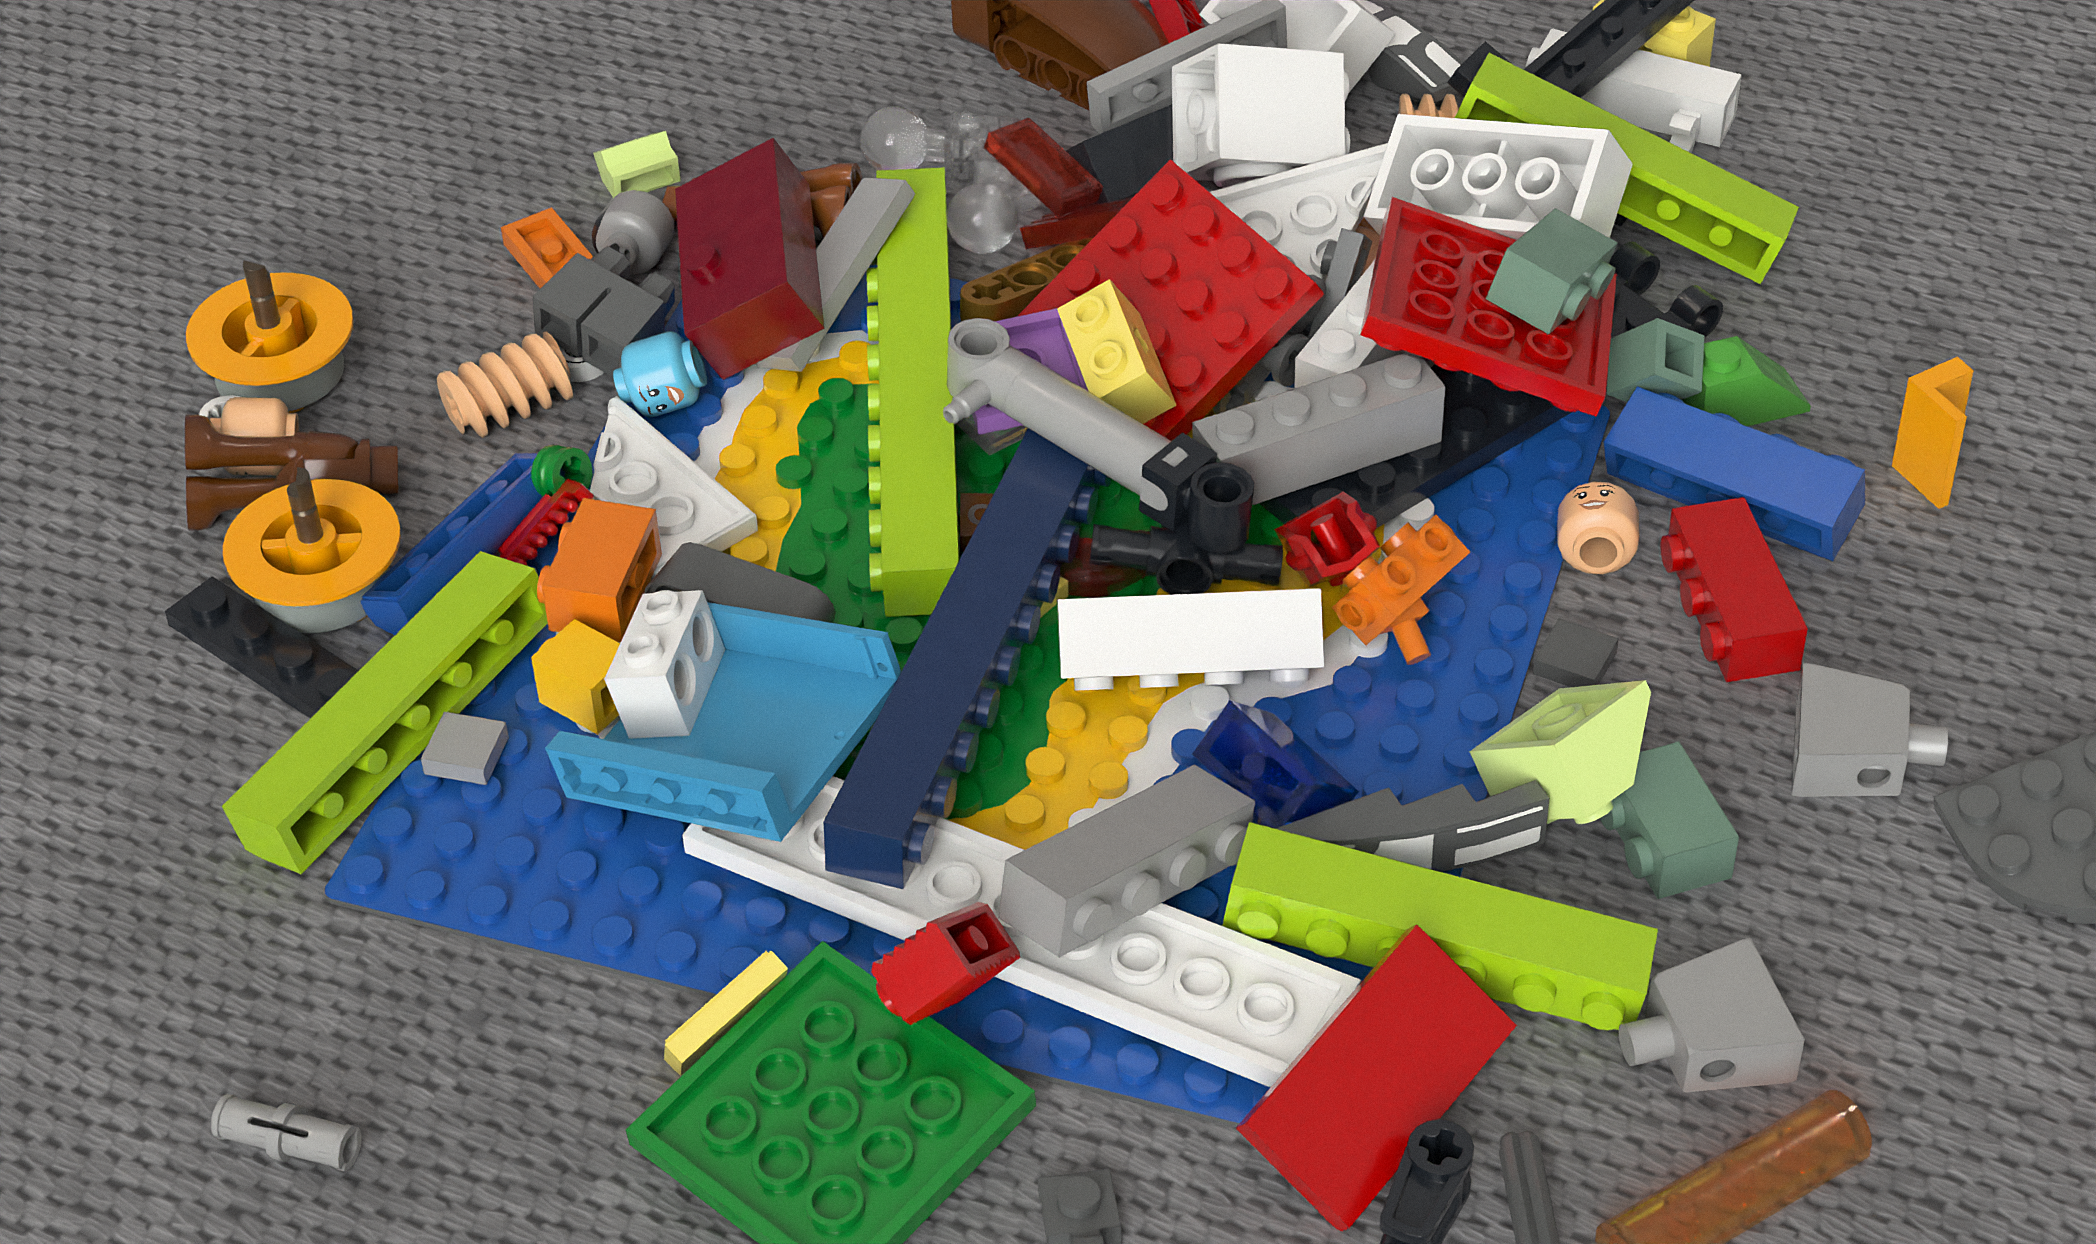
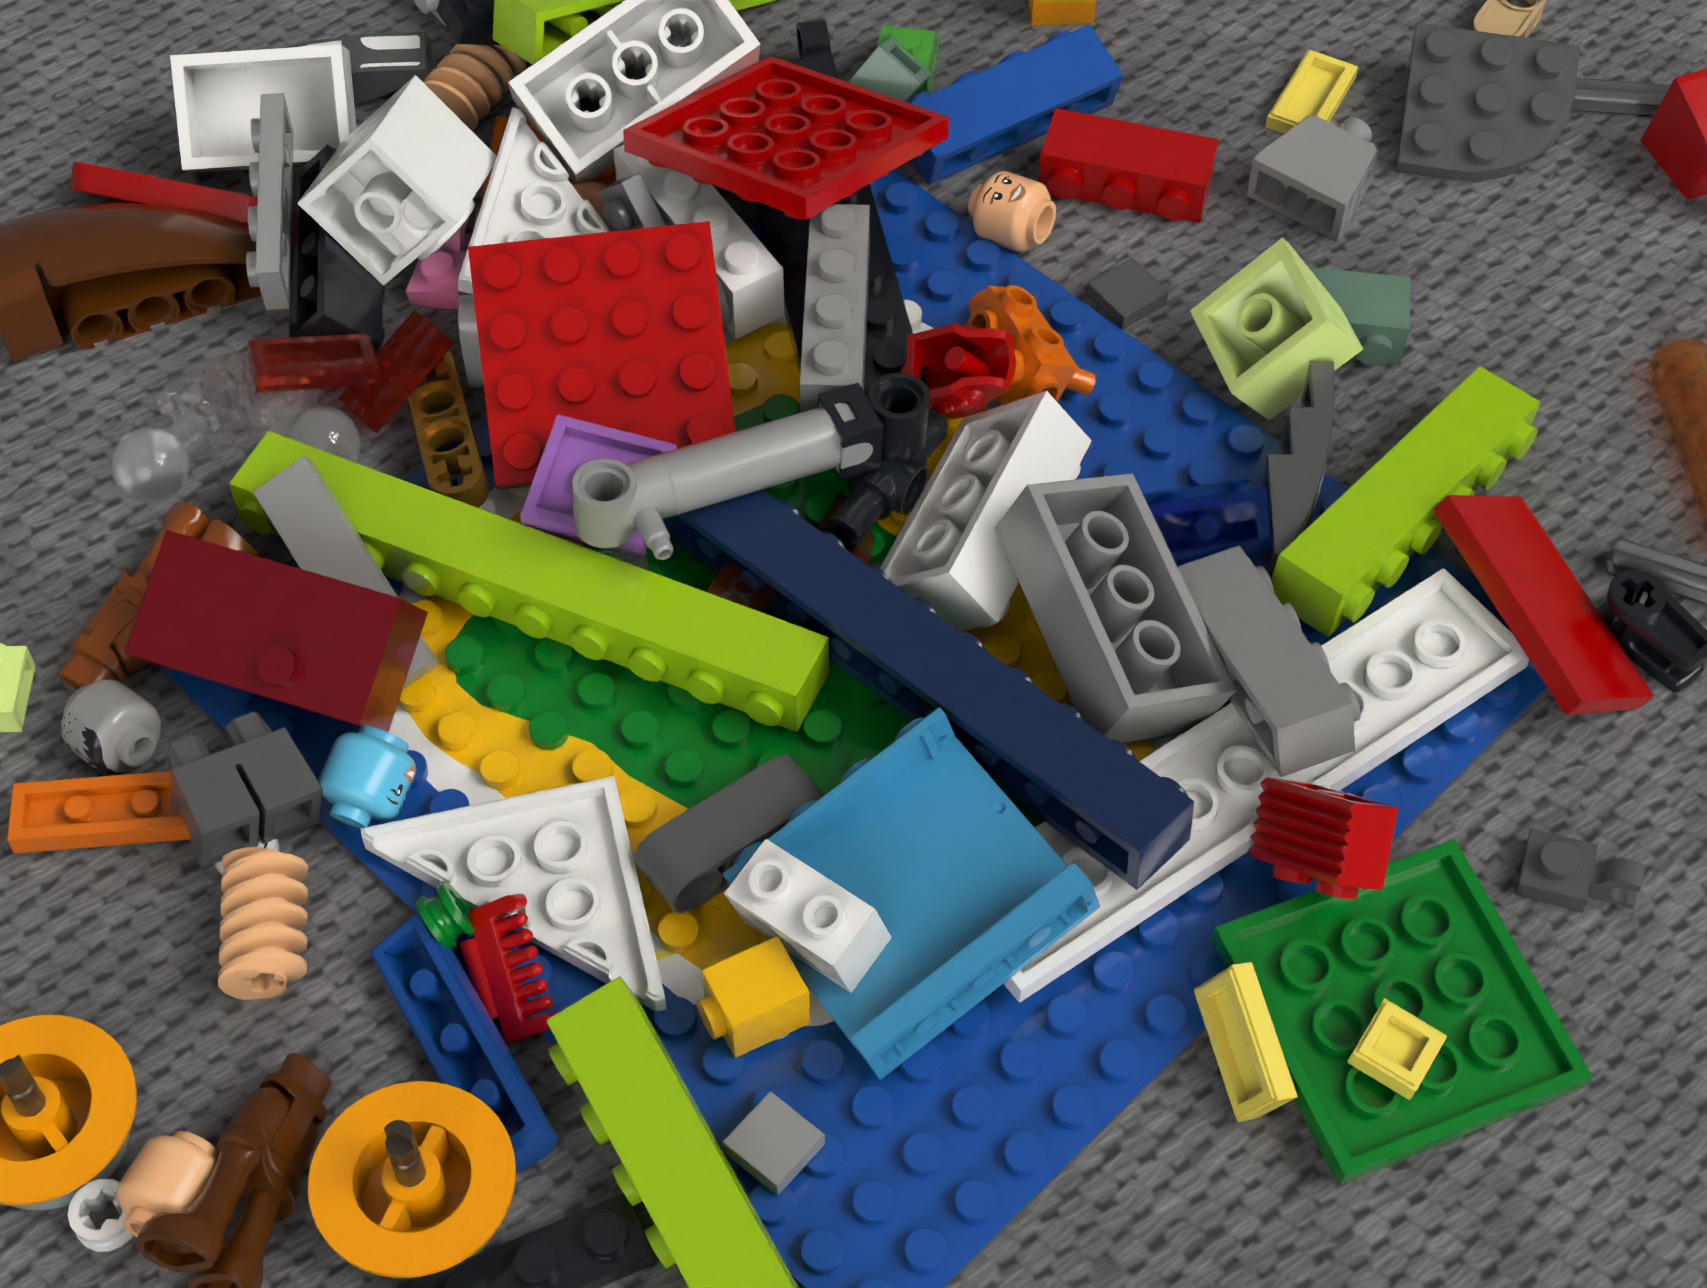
camera: 65 degrees left, 10 degrees up
(601, 567) = (639, 923): orange brick -> none
(768, 1116) = (1397, 1049): none -> light yellow tile
(1108, 723) = (1113, 608): none -> light grey brick
(1116, 353) = (657, 402): light yellow brick -> none
(1553, 271) = (795, 75): sand green brick -> none
(1717, 1023) = (1569, 373): light grey torso -> none
(1982, 703) = (1312, 91): none -> light yellow tile

